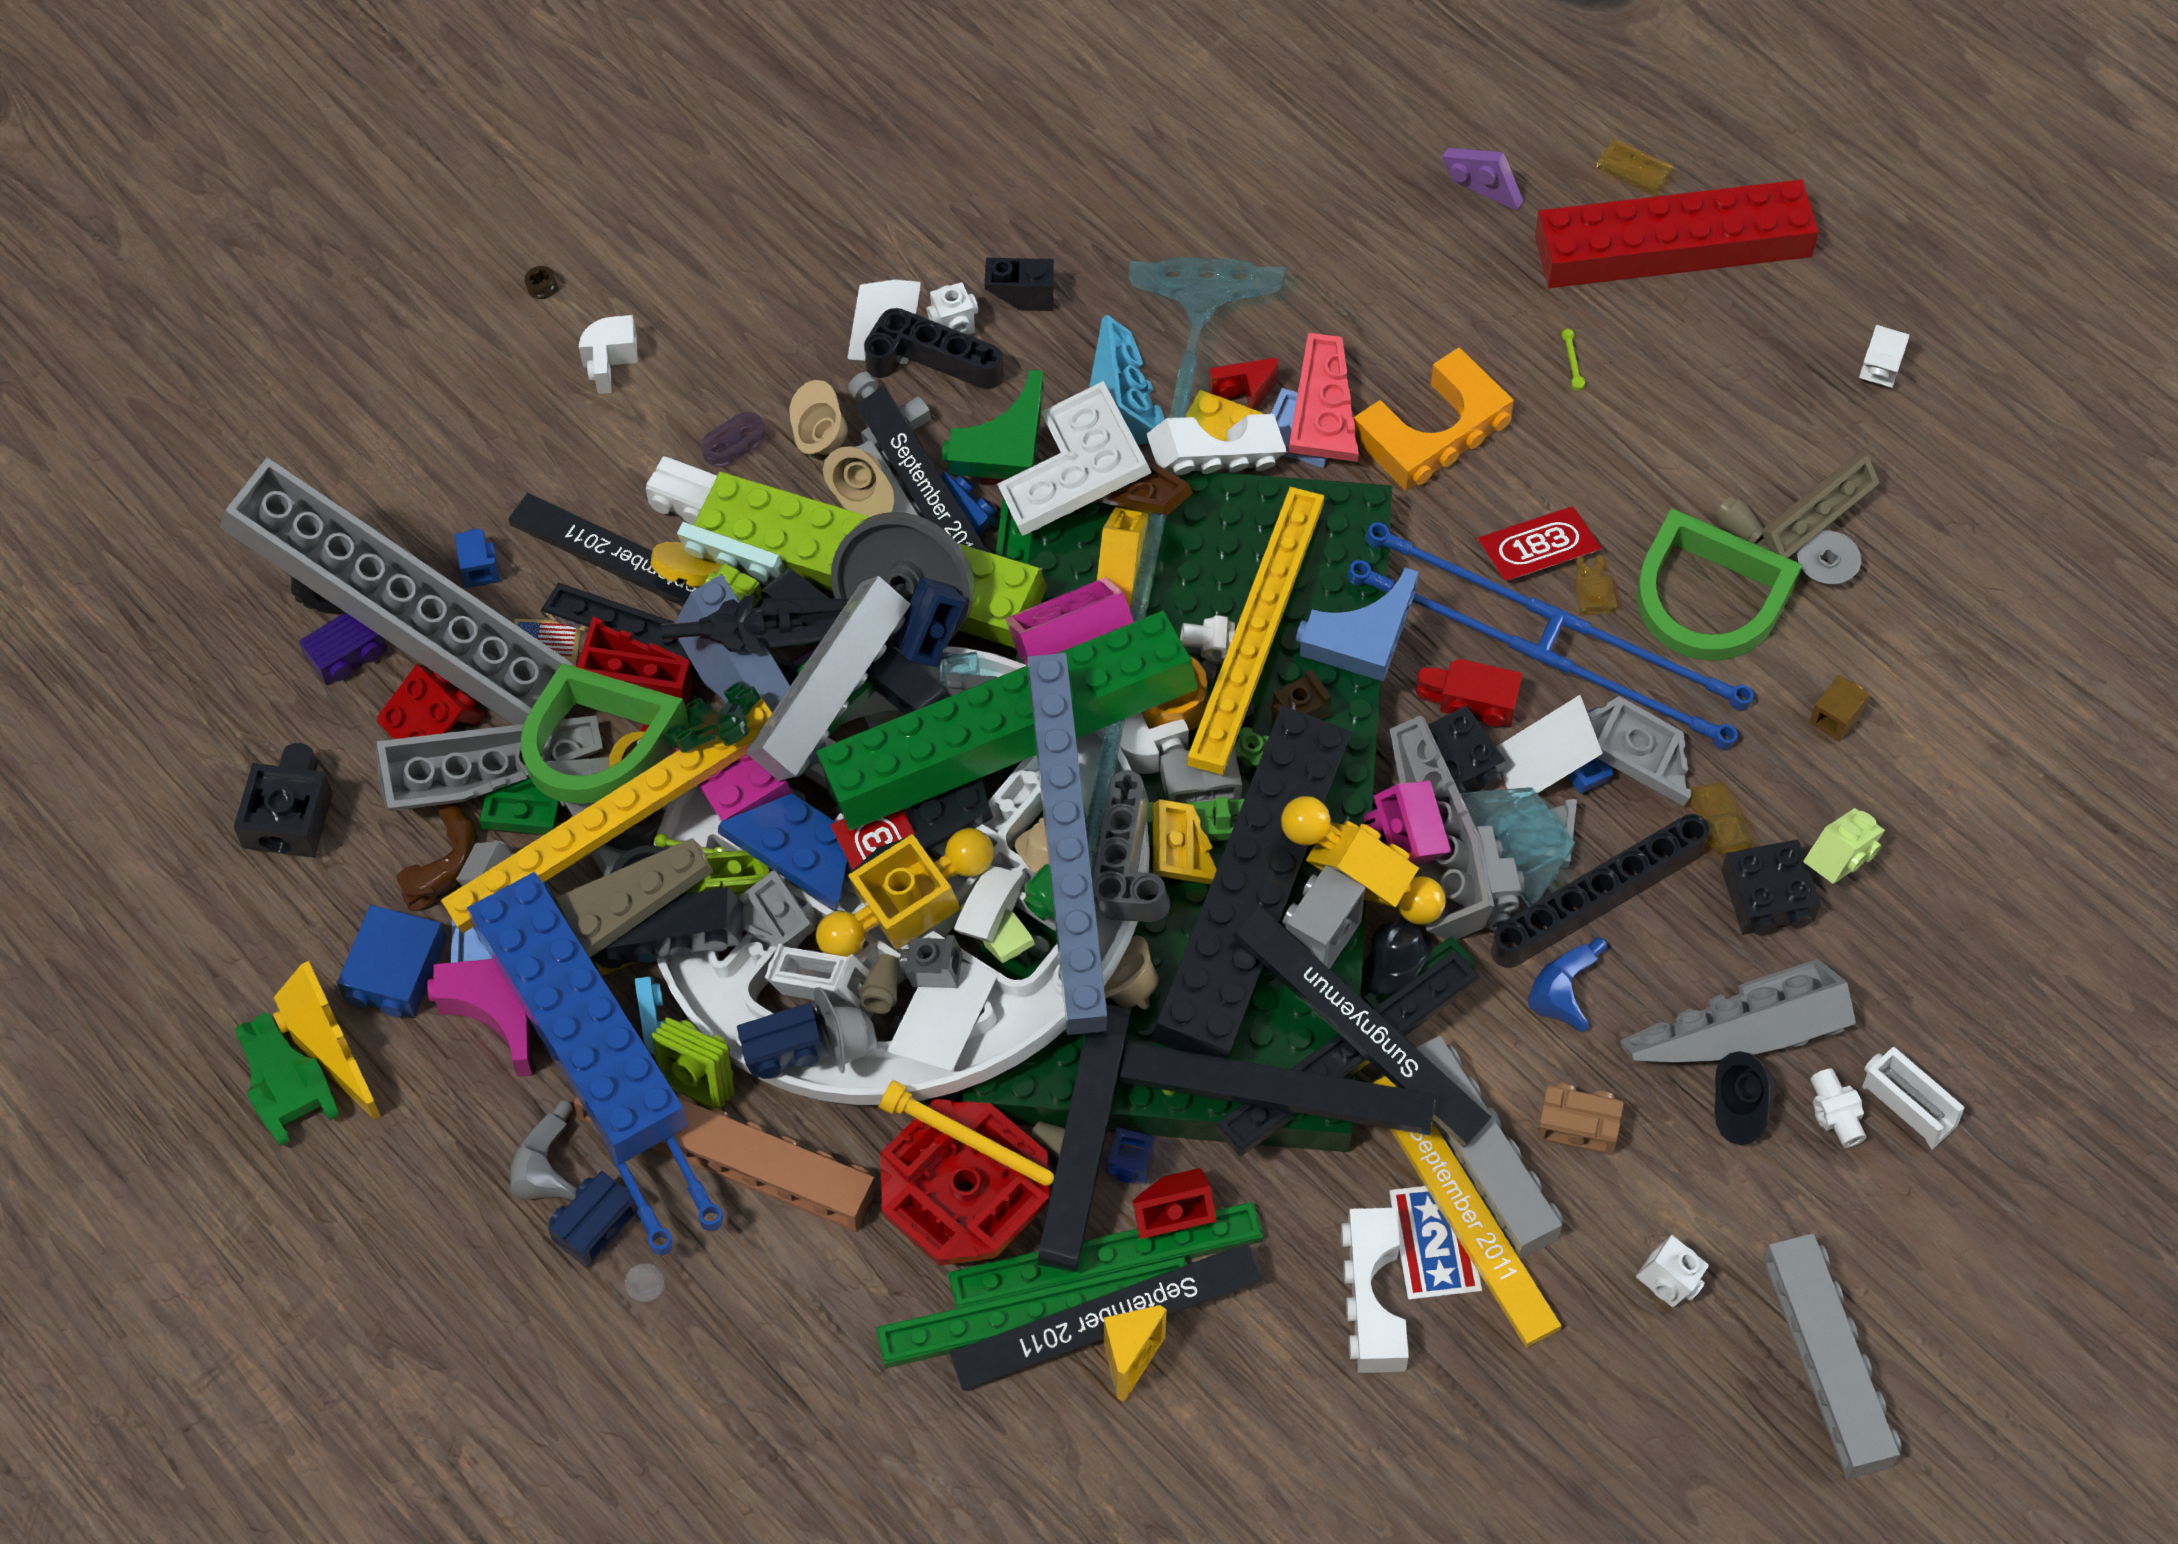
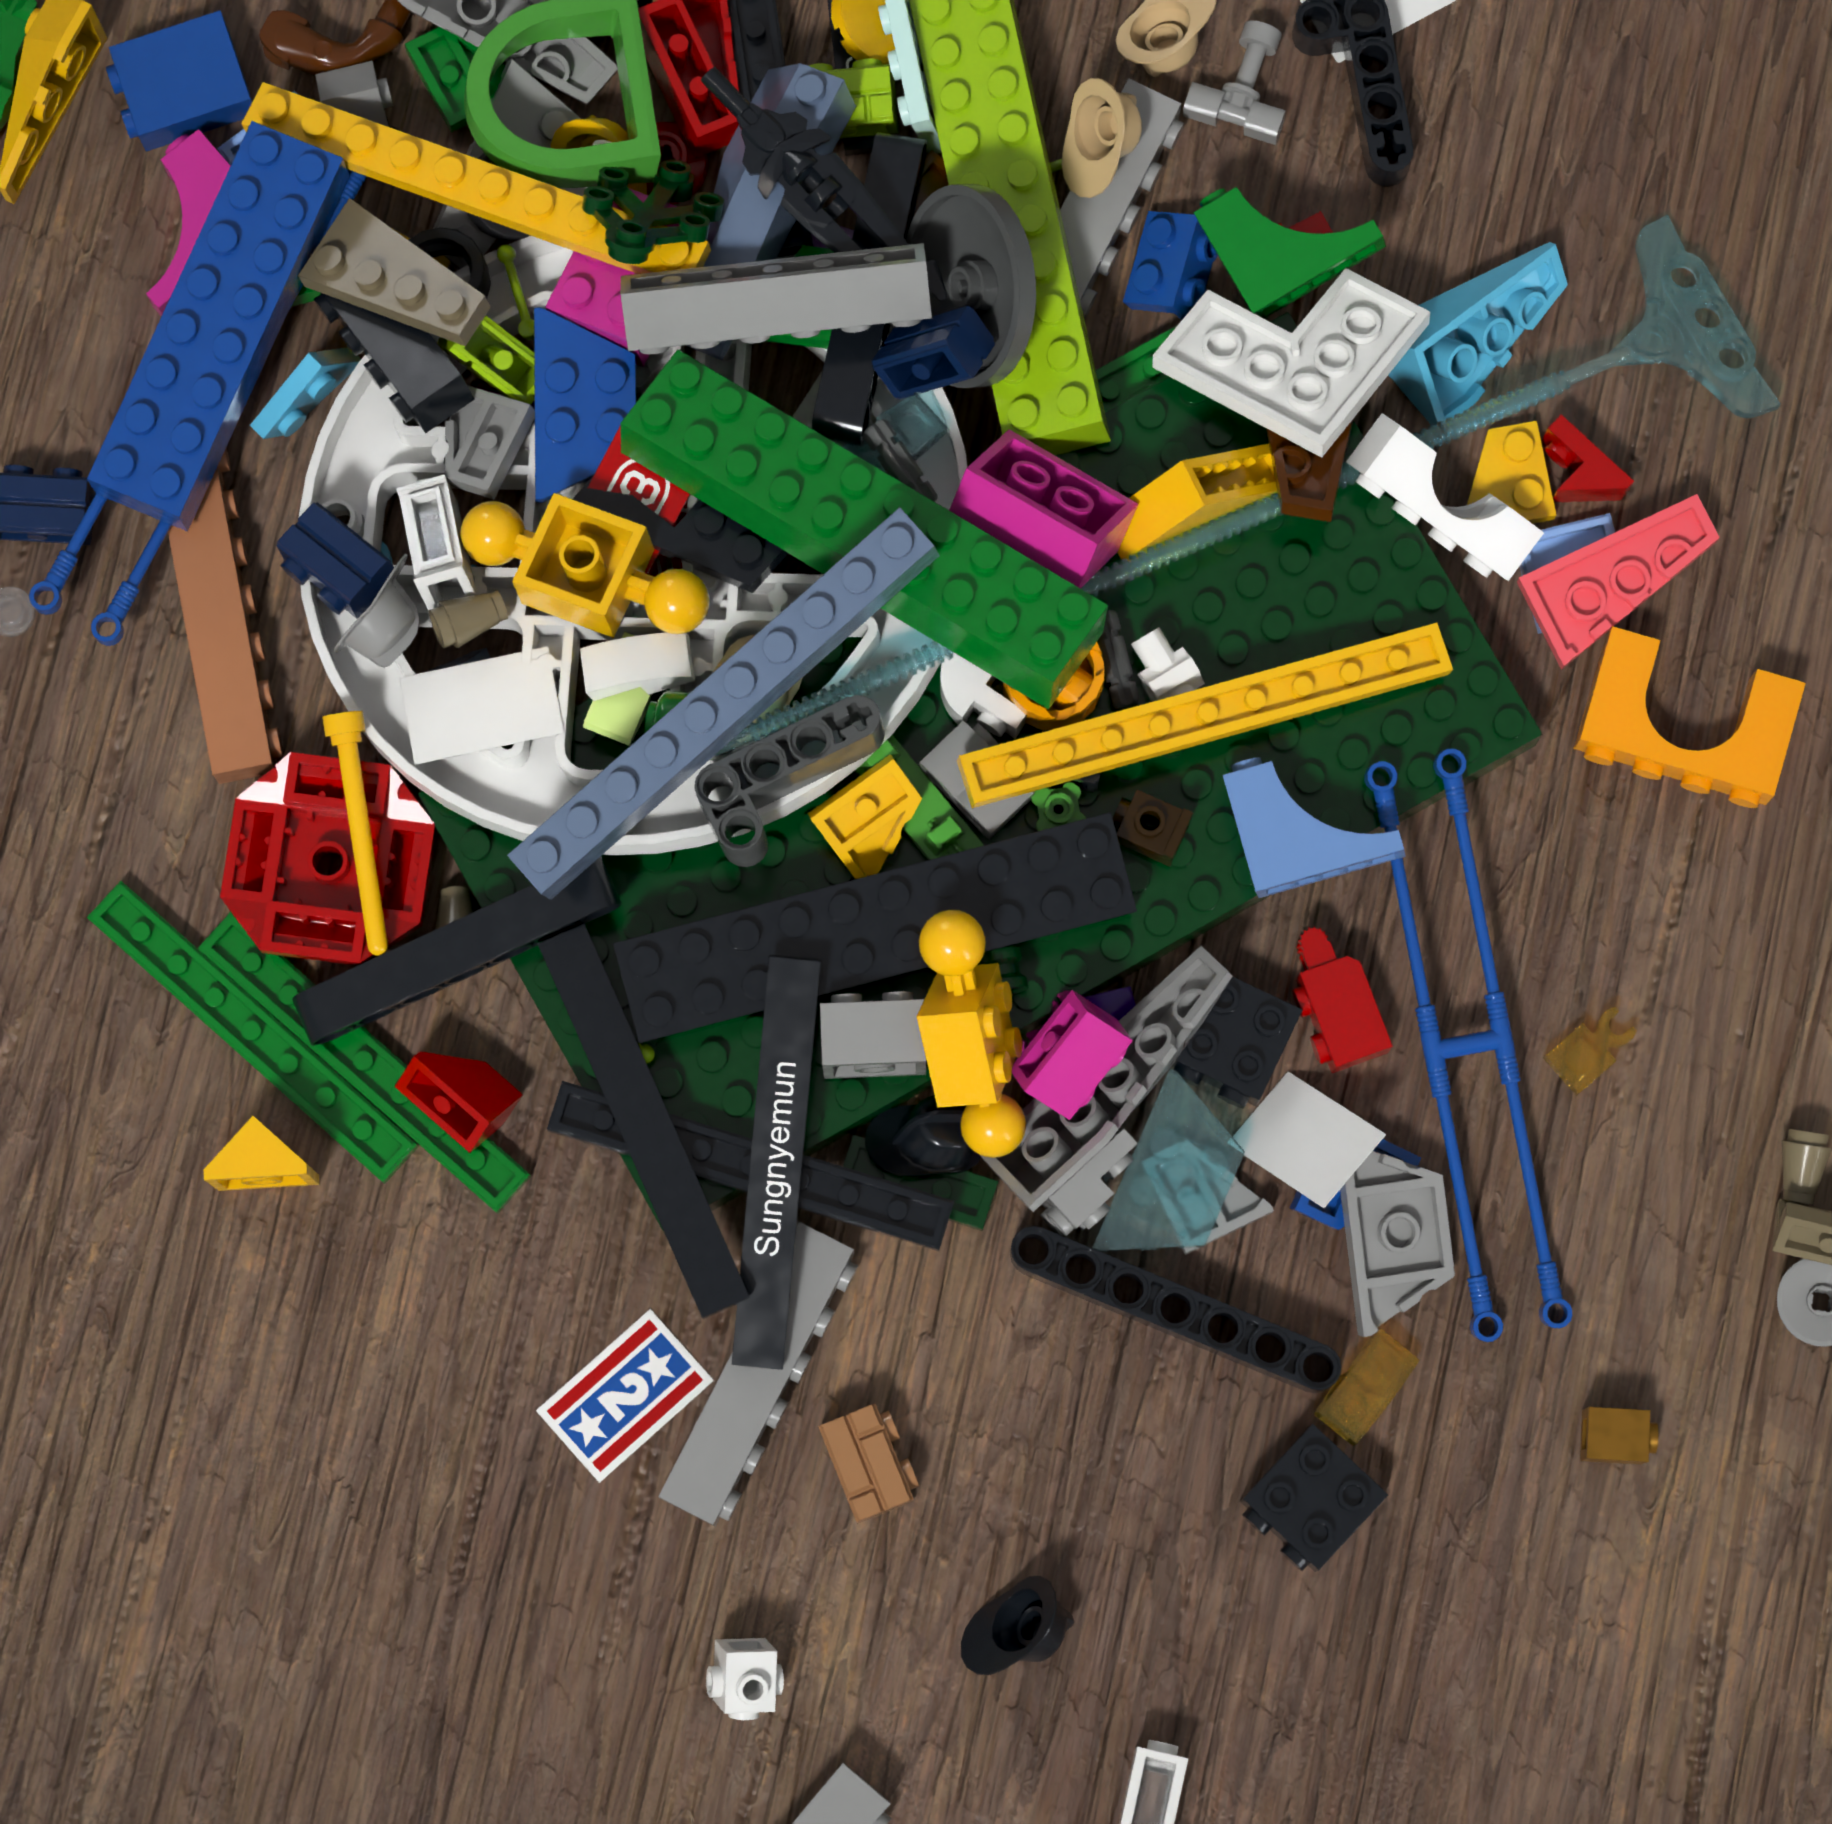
camera: 55 degrees right, 20 degrees up
(530, 1170) = (47, 402): light grey animal -> none
(694, 1062) = (268, 482): lime brick -> none
(917, 468) = (1164, 206): black tile -> none
(932, 962) = (529, 667): dark grey brick -> none
(953, 308) = (1437, 77): white brick -> none
(1021, 282) = (1532, 113): black slope -> none
(1085, 1321) = (290, 1110): black tile -> none
(1128, 1162) = (480, 1013): clear blue brick -> none
(1134, 977) = (667, 878): tan piece -> none
(1379, 1335) = (459, 1409): white arch -> none
(1478, 1233) = (654, 1446): yellow tile -> none
(1539, 543) = (1605, 949): red sticker -> none
(1552, 989) = (1008, 1332): blue animal -> none
(1725, 550) = (1736, 1101): bright green window -> none
(1762, 1017) = (1136, 1589): light grey wedge -> none
(1838, 1108) = (1079, 1739): white axle -> none
(1845, 845) = (1414, 1552): yellowish green brick -> none

